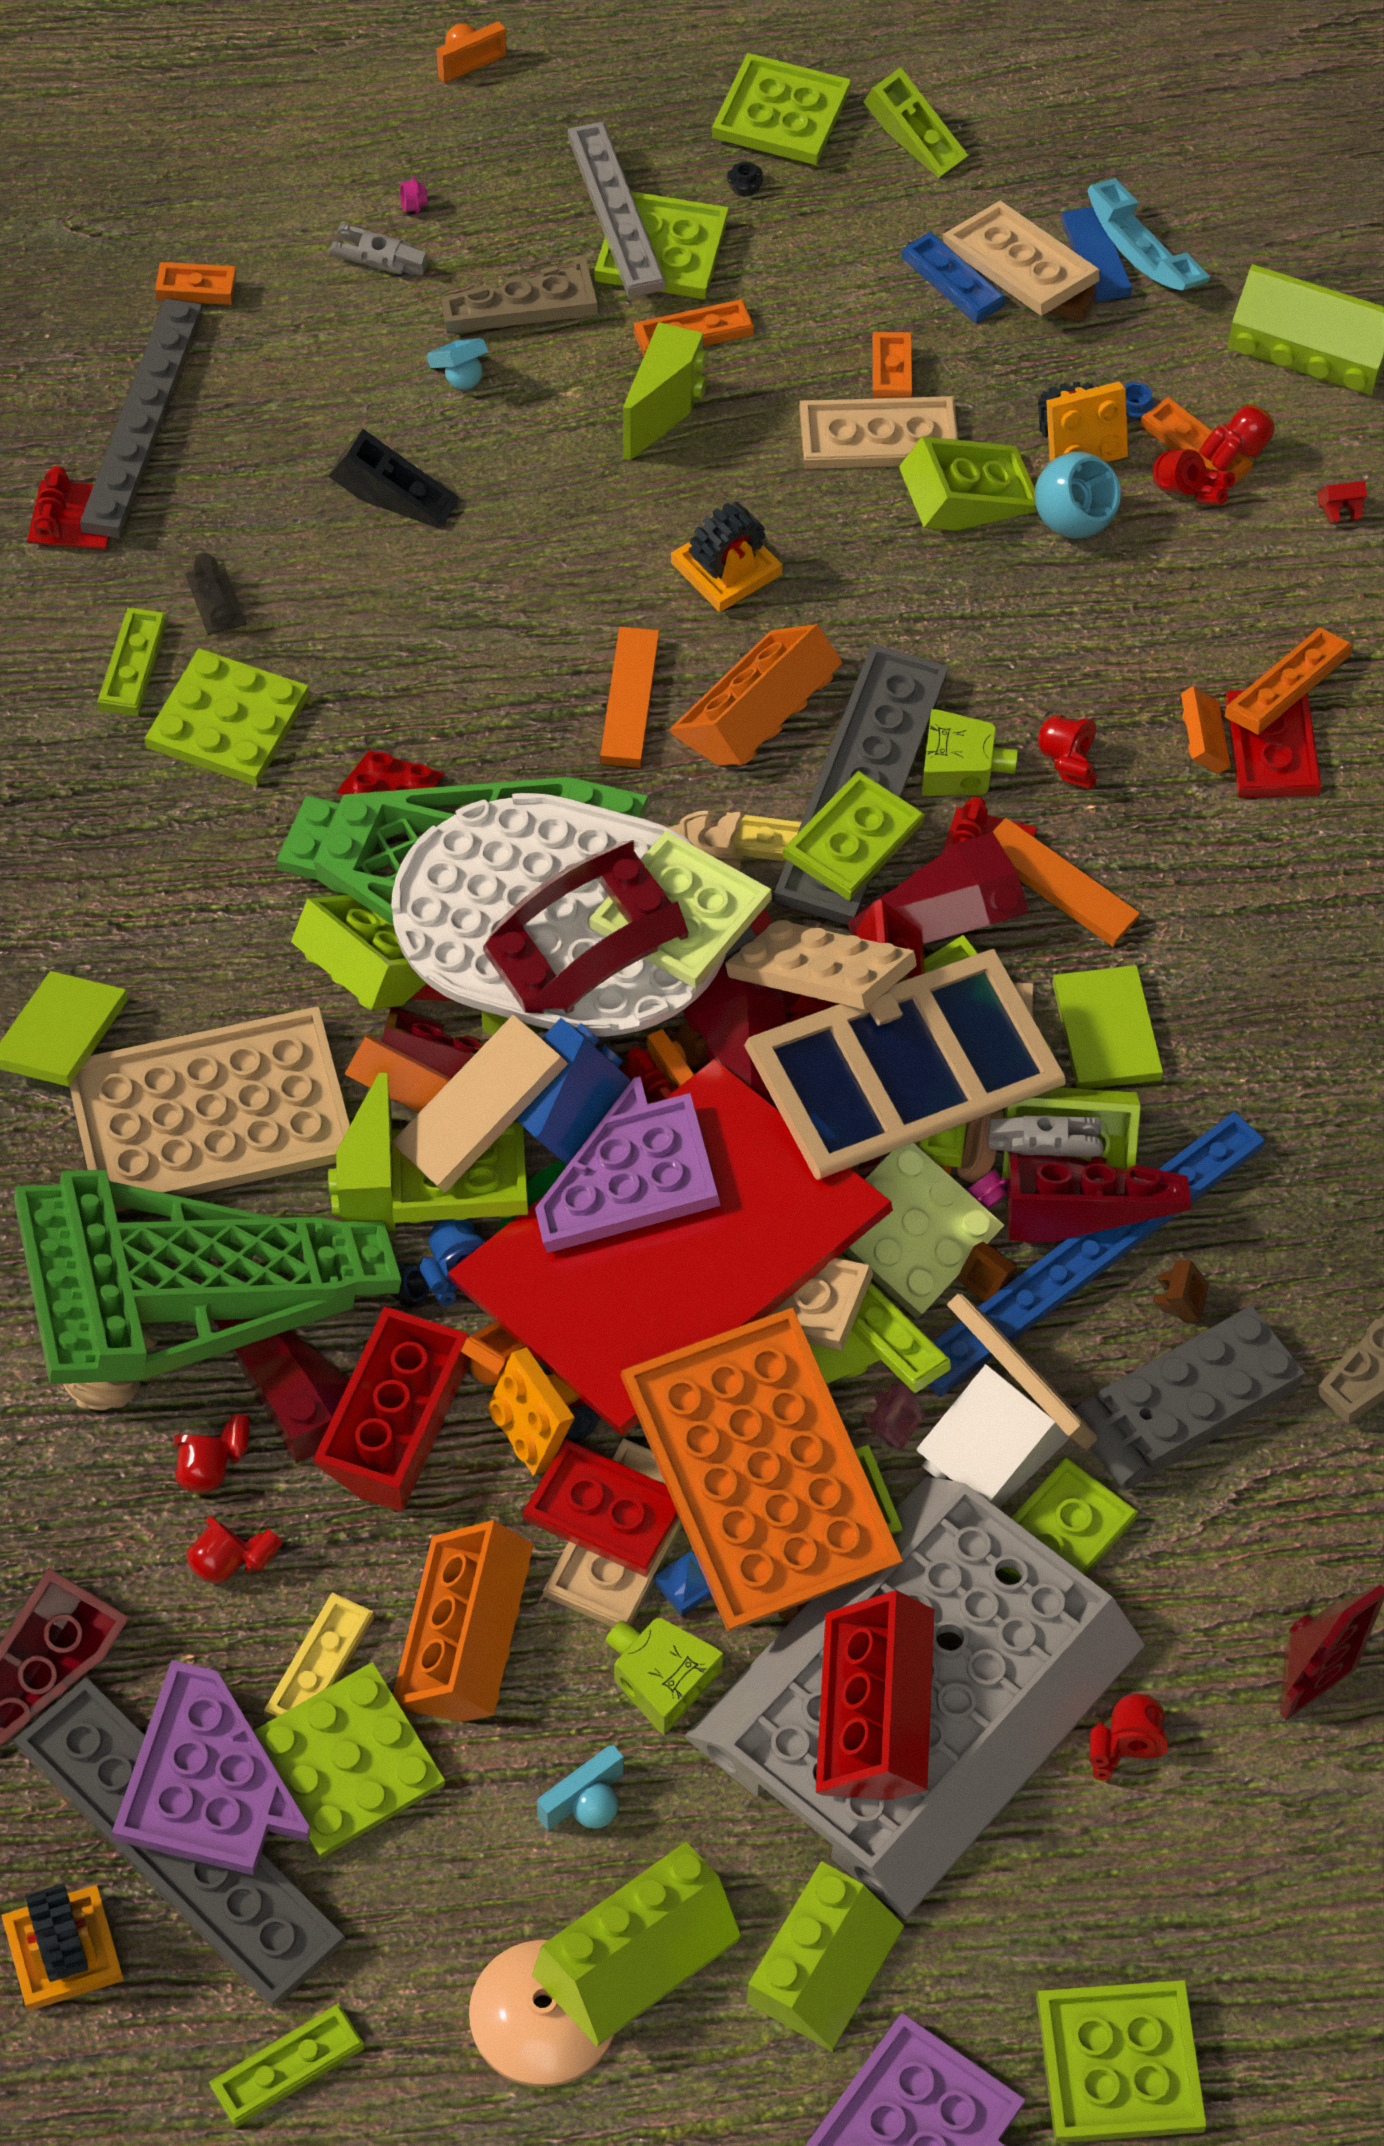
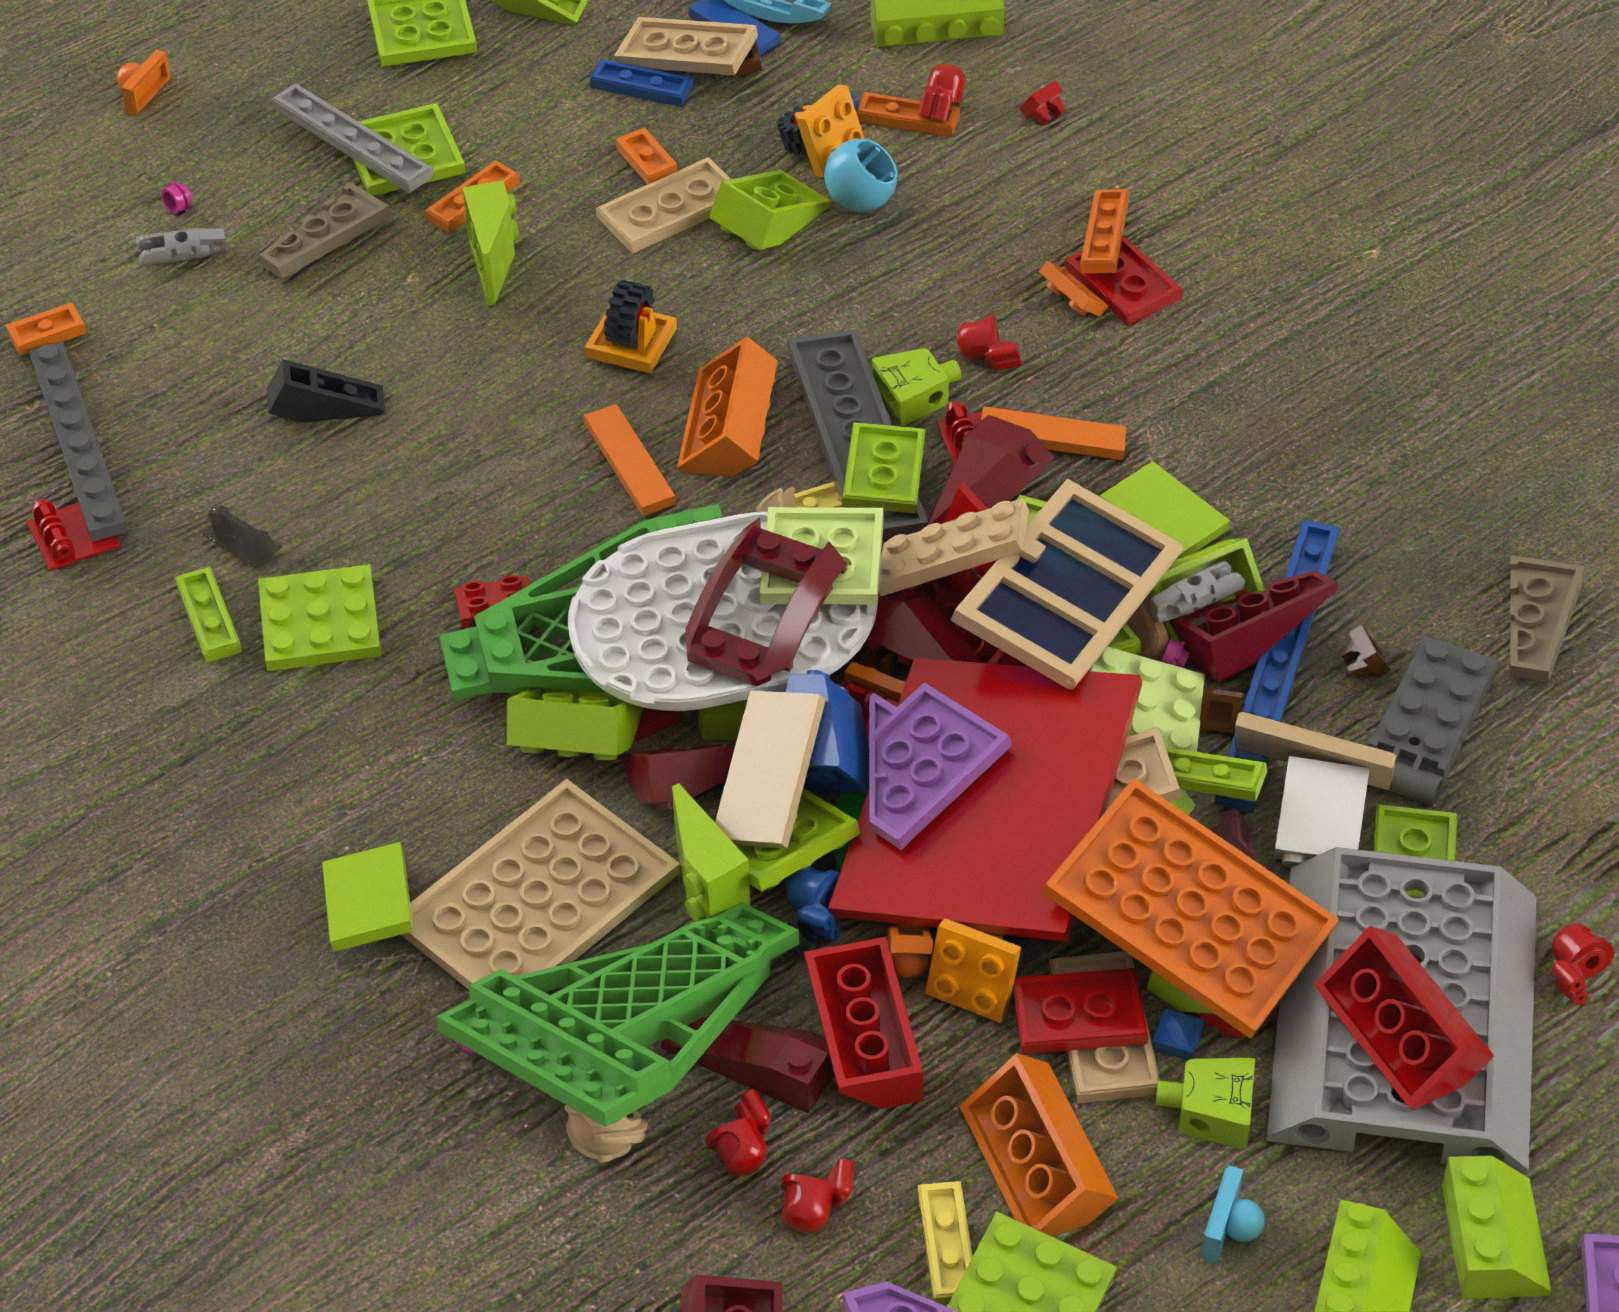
camera: 30 degrees left, 10 degrees down
(409, 1080) = (654, 789): orange tile -> none
(460, 362) = (311, 289): medium azure tile -> none
(745, 178) = (430, 82): black plate -> none
(1186, 474) = (922, 133): red piece -> none

